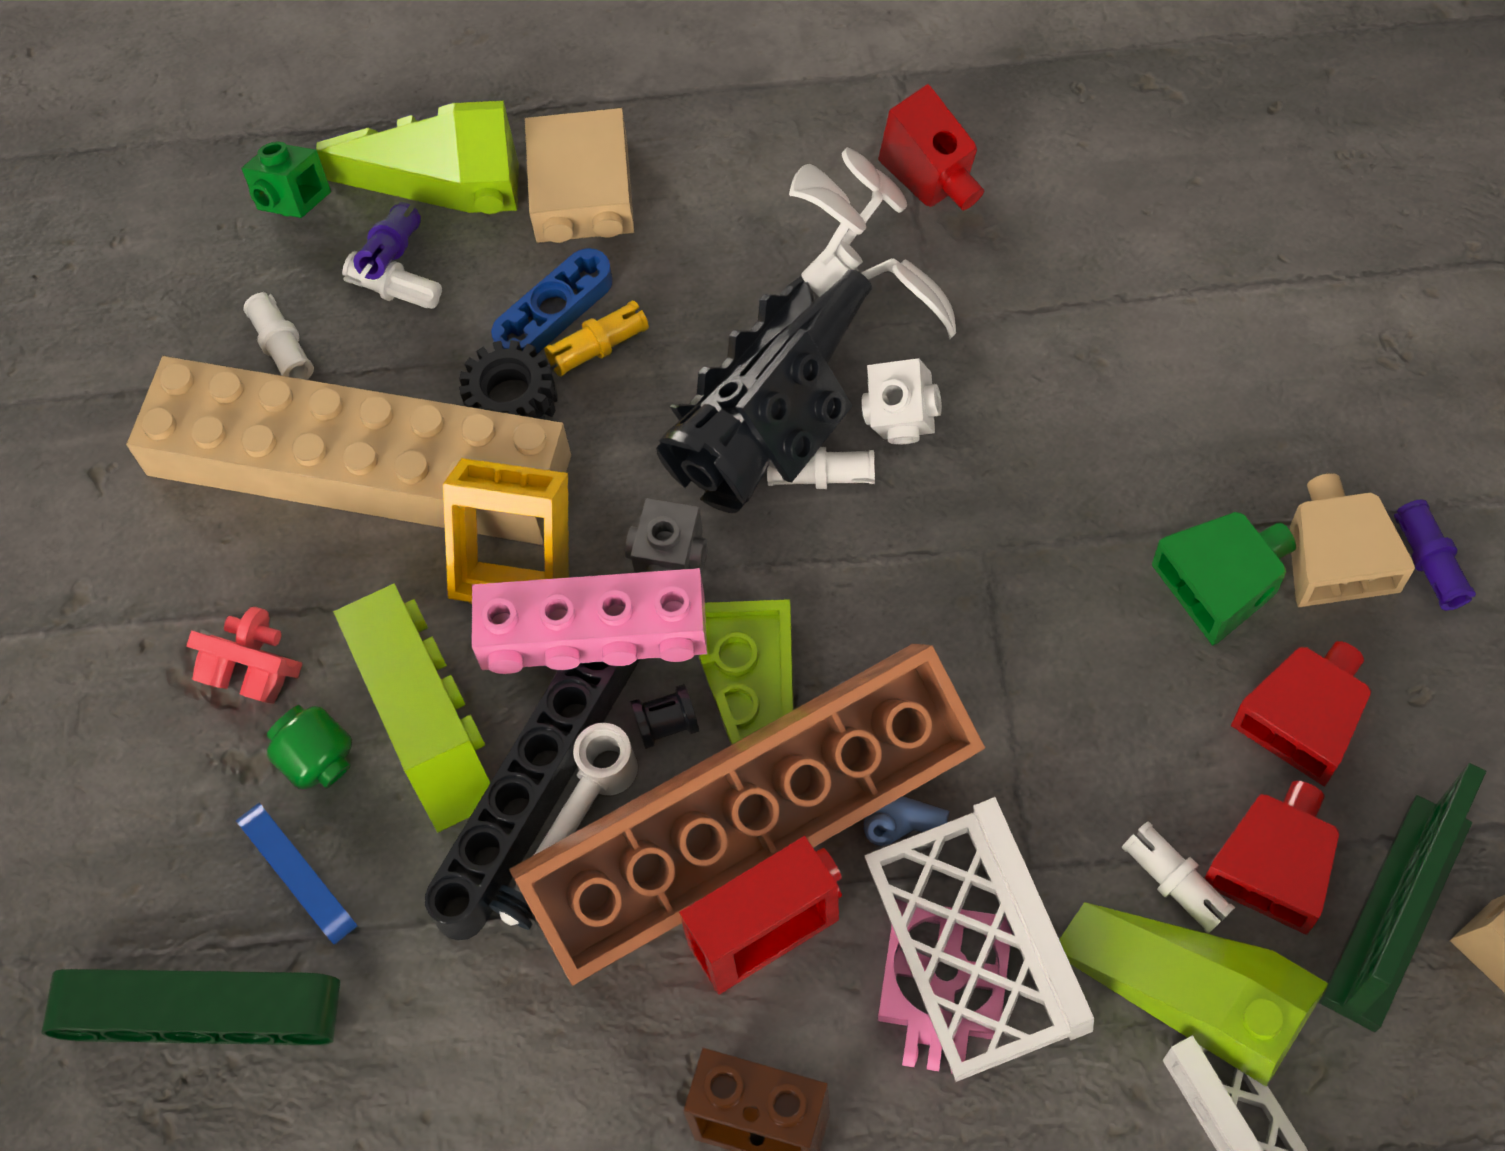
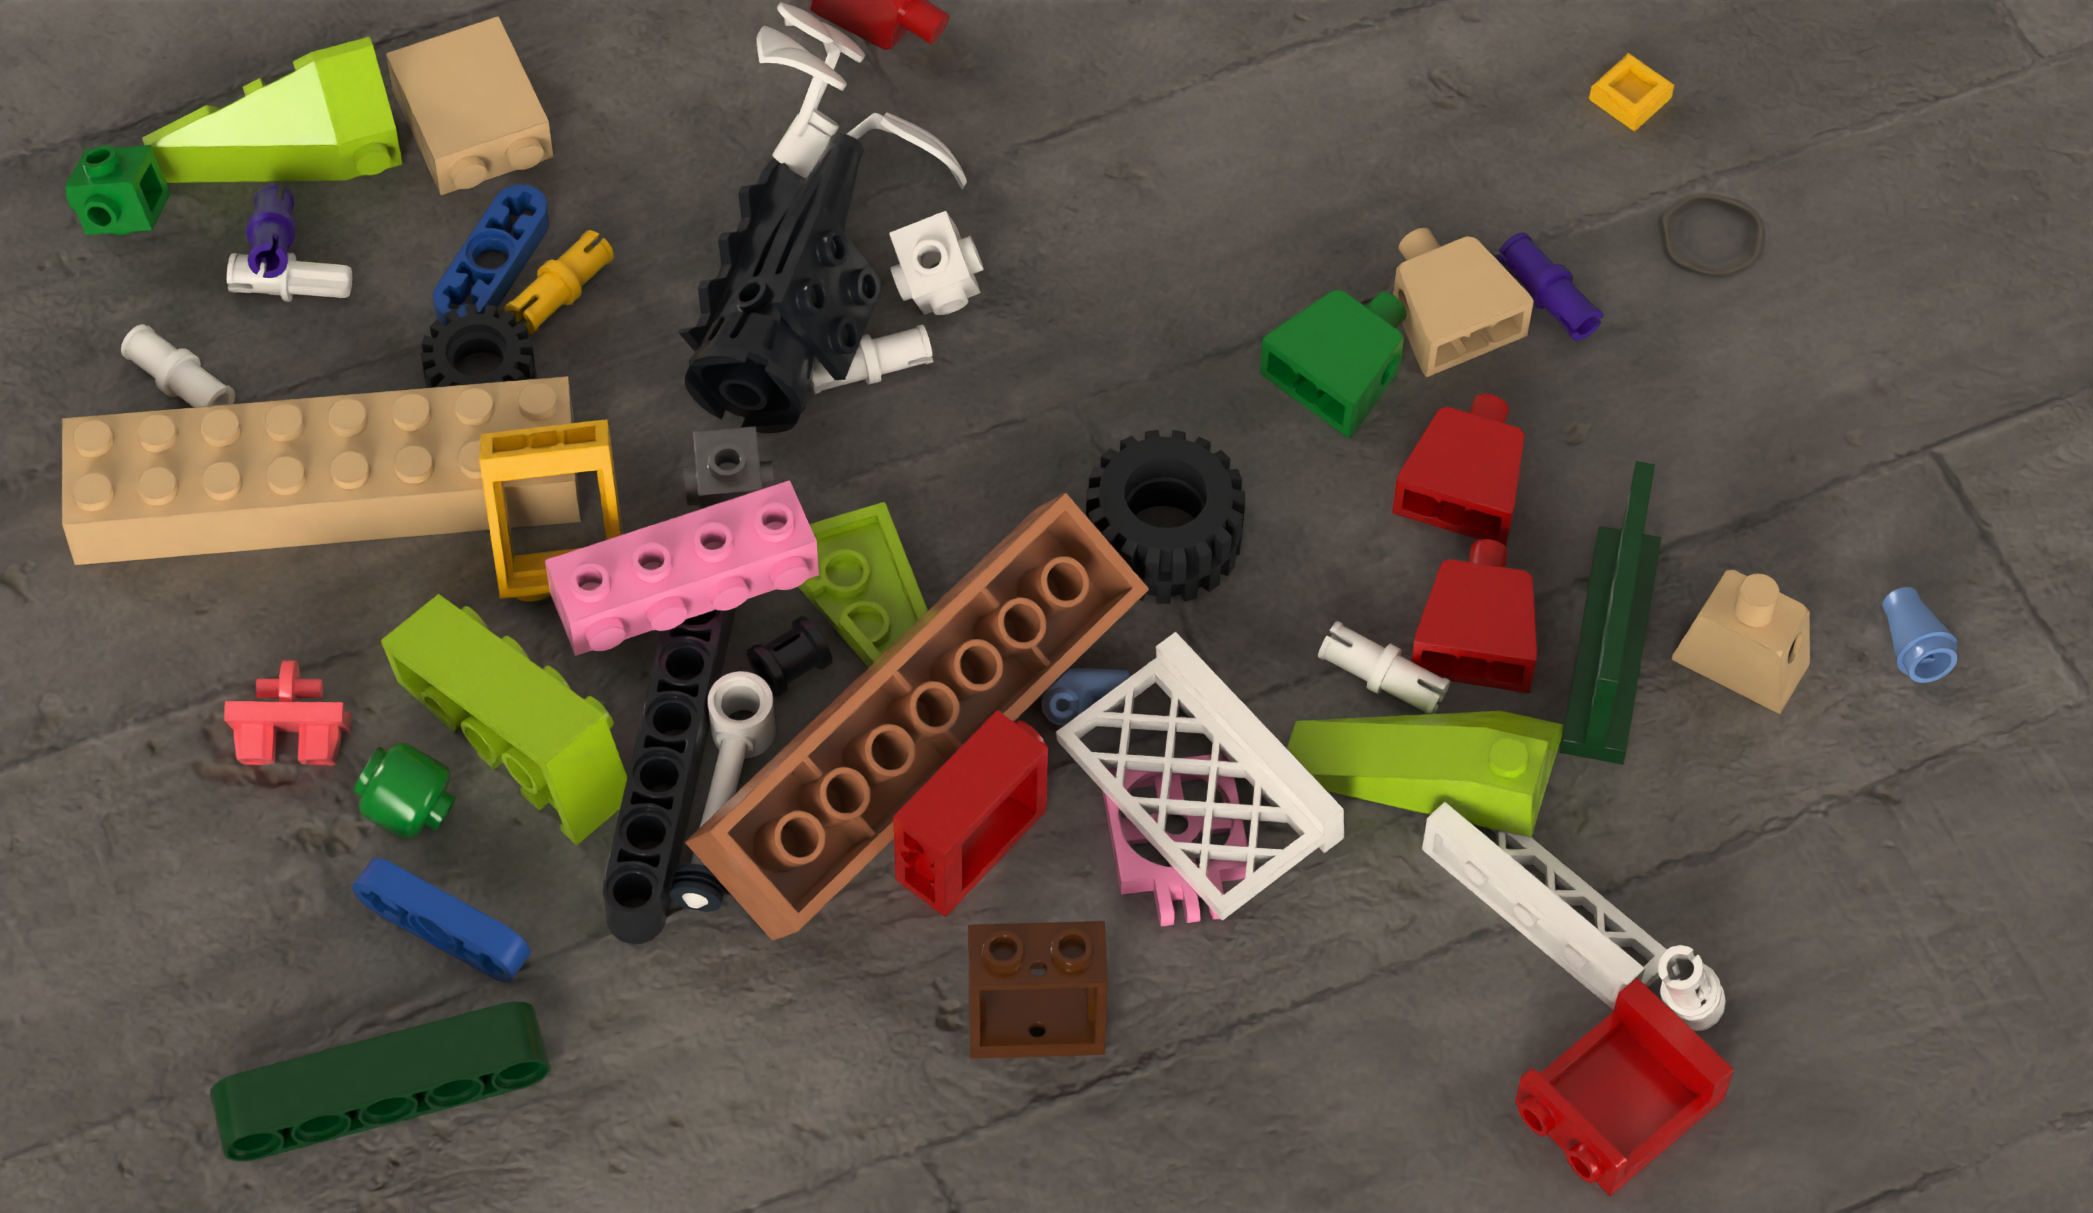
camera: 25 degrees left, 5 degrees down
(1034, 639) = (1177, 476): none -> black tyre

